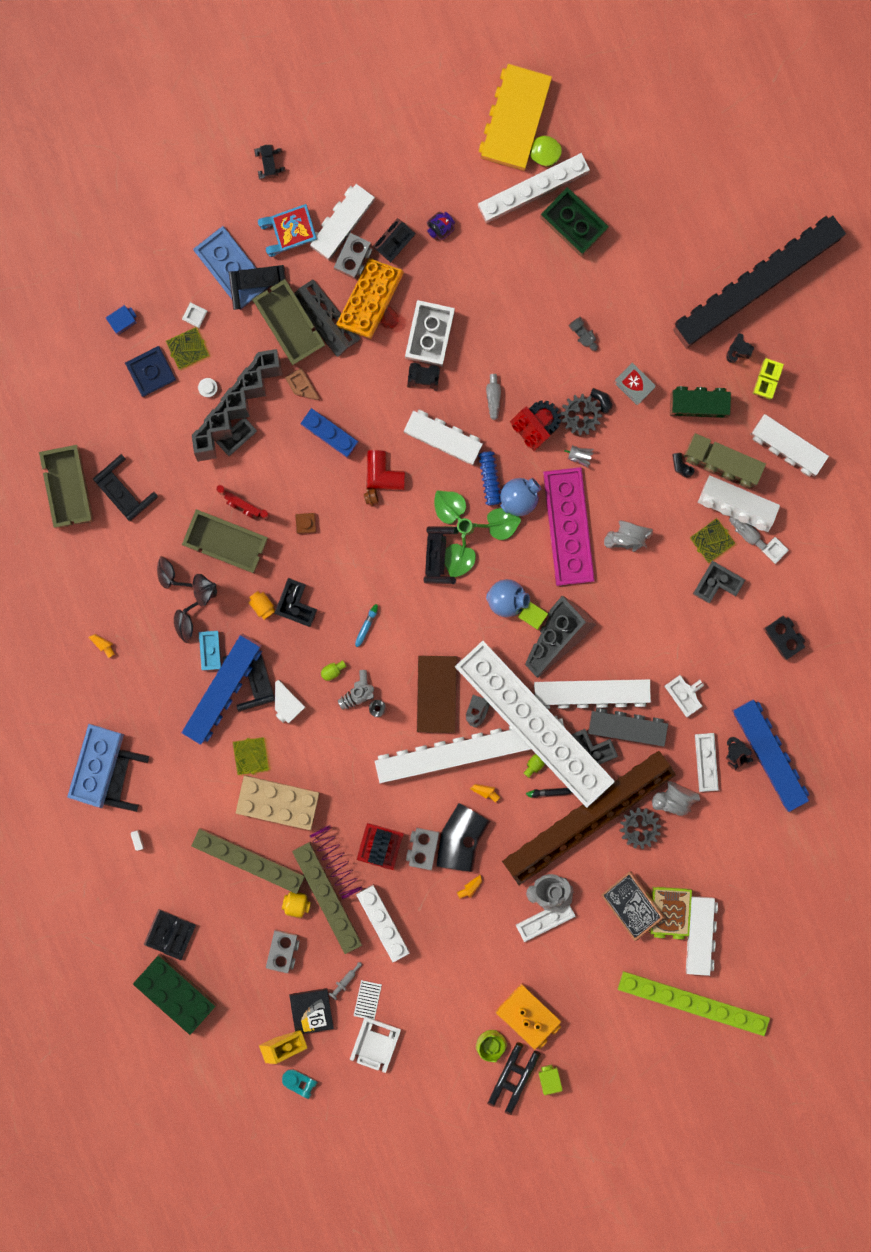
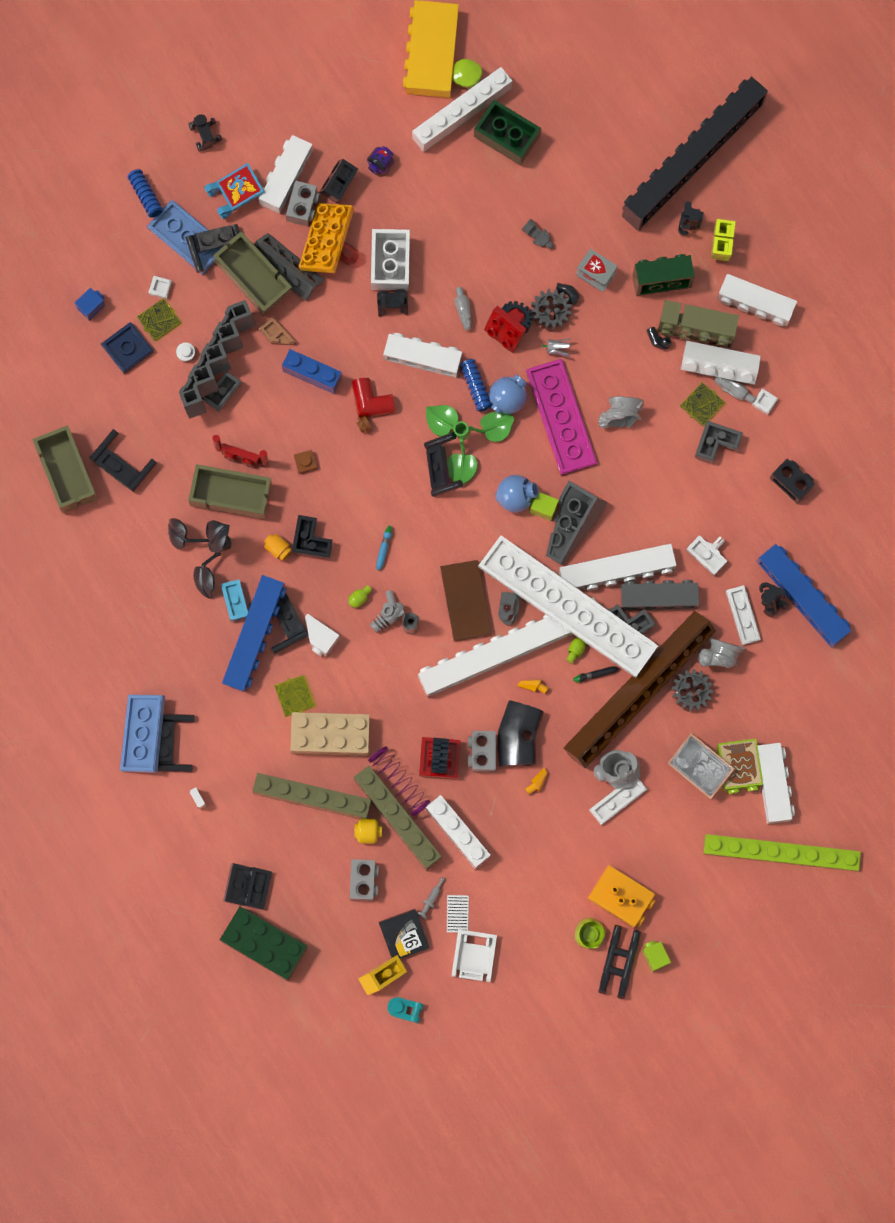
camera: 15 degrees left, 10 degrees down
(102, 644) = (128, 616): light orange bar -> none
(197, 215) = (145, 193): none -> blue piece

